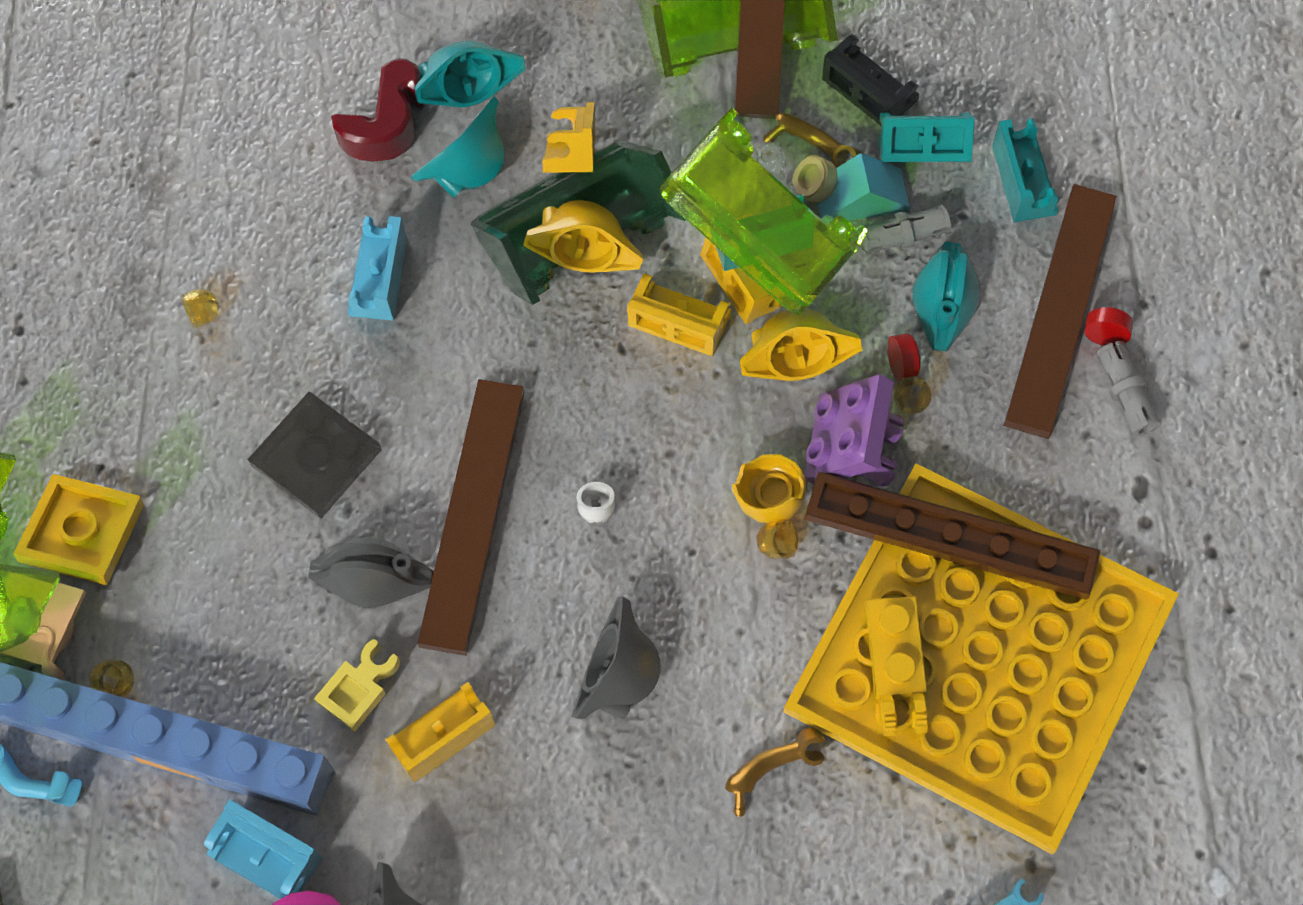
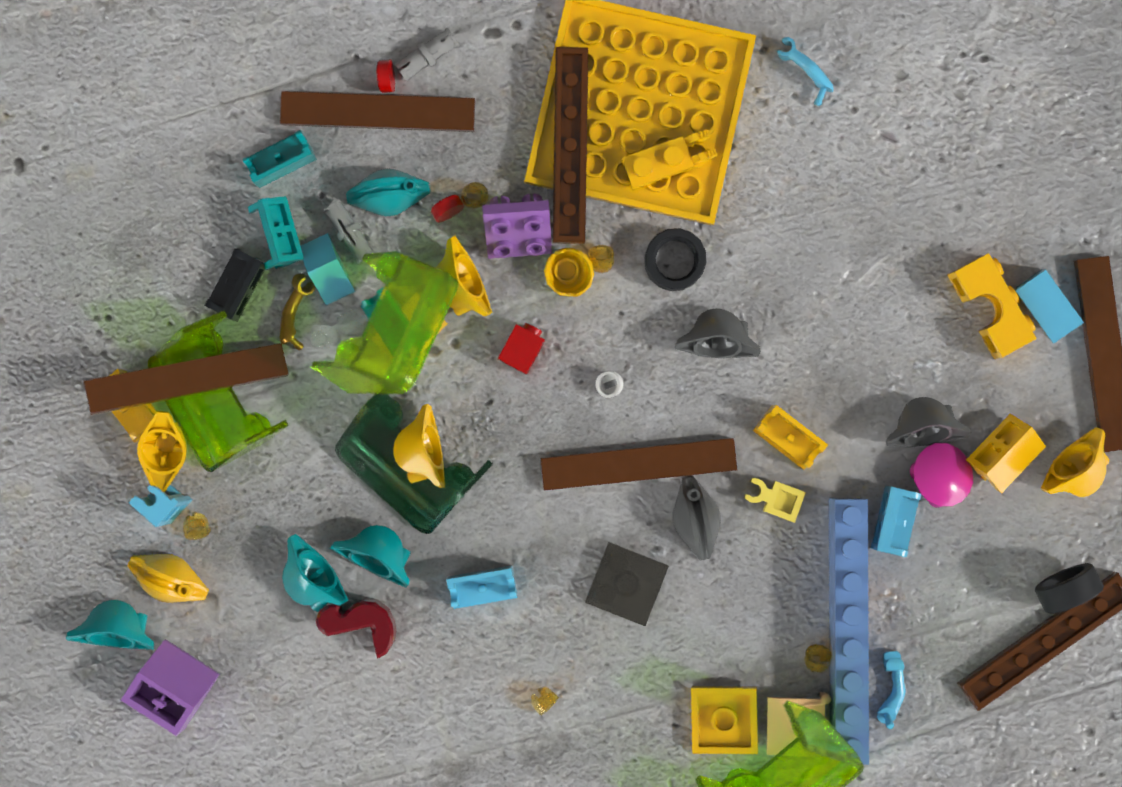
camera: 110 degrees left, 20 degrees up
(573, 148) = (351, 480): yellow hinge -> none
(677, 316) = (456, 368): yellow hinge -> none
(681, 400) = (522, 347): none -> red brick
(751, 772) = (732, 204): pearl gold piece -> none
(752, 604) = (692, 242): none -> black tyre
(815, 178) = (327, 303): tan tile -> none

